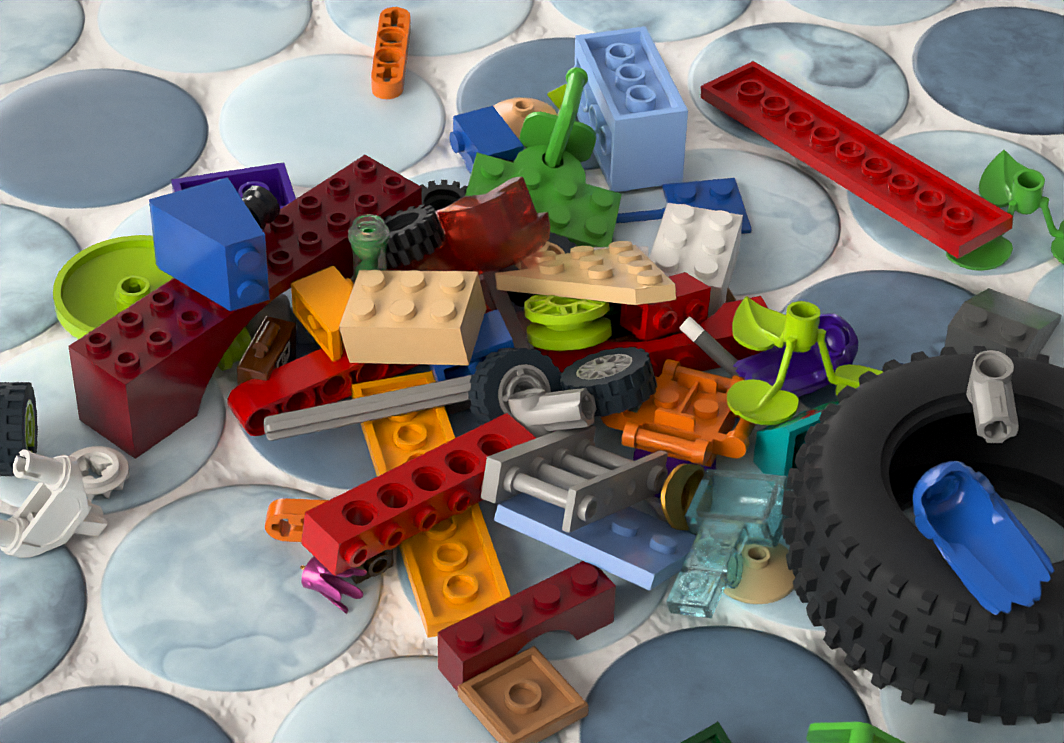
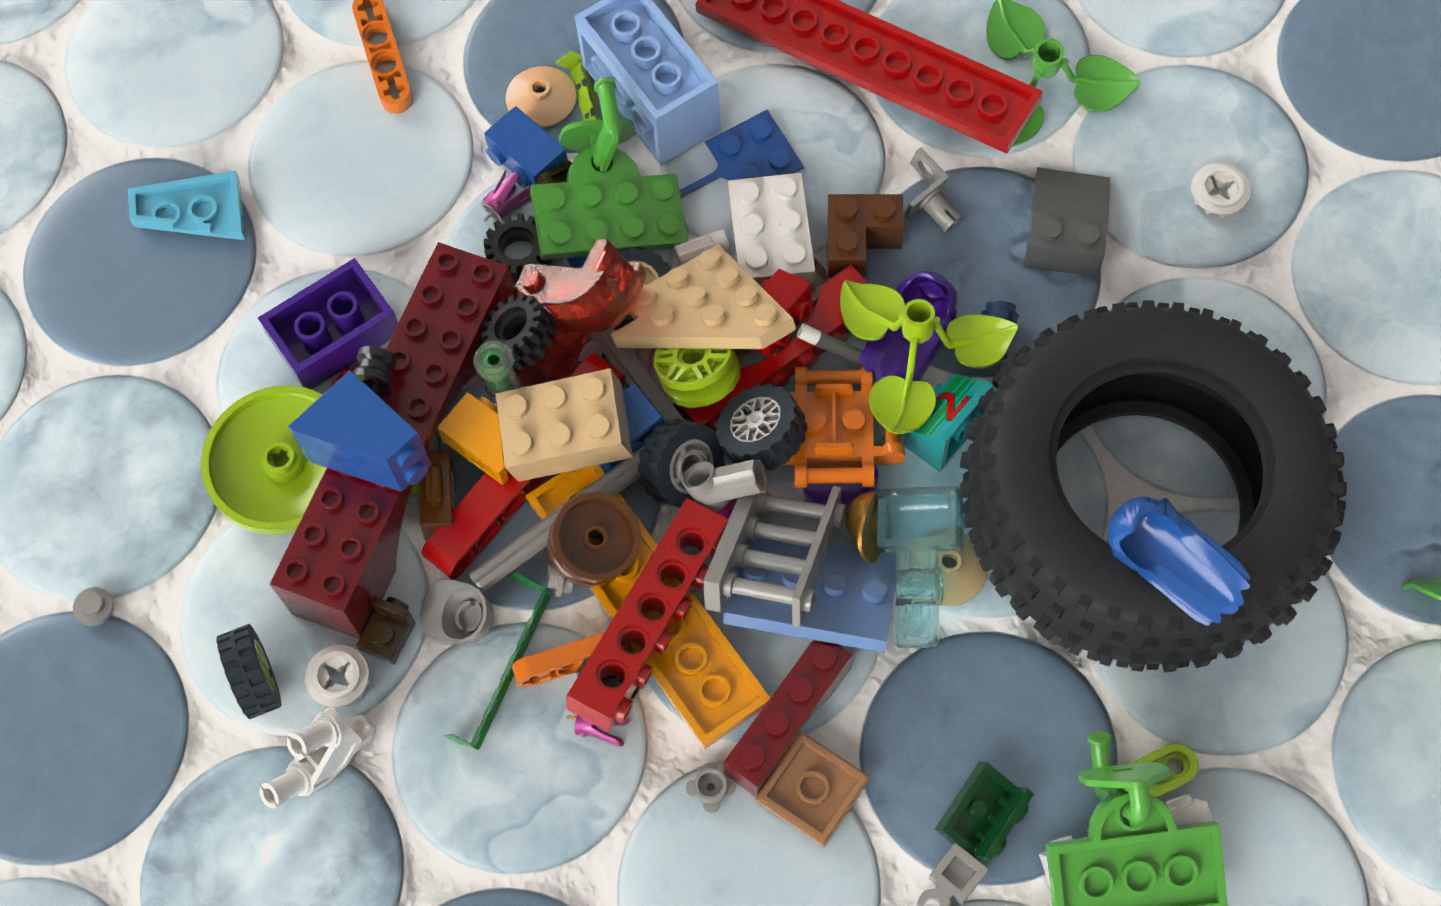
camera: 15 degrees left, 25 degrees up
(159, 107) = (191, 205): none -> medium azure wing
(164, 451) = (386, 629): none -> dark brown bracket
(239, 454) = (456, 612): none -> light grey cap
(319, 454) = (518, 654): none -> green piece
(352, 457) = (557, 582): none -> light grey plate
(396, 414) = (603, 518): none -> reddish brown wheel
(417, 667) = (710, 775): none -> light grey plate
(439, 171) = (497, 201): none -> flat silver piece
(787, 275) = (860, 224): none -> reddish brown brick
(868, 275) = (930, 198): none -> light grey bracket
(993, 396) = (1131, 387): light grey piece -> none

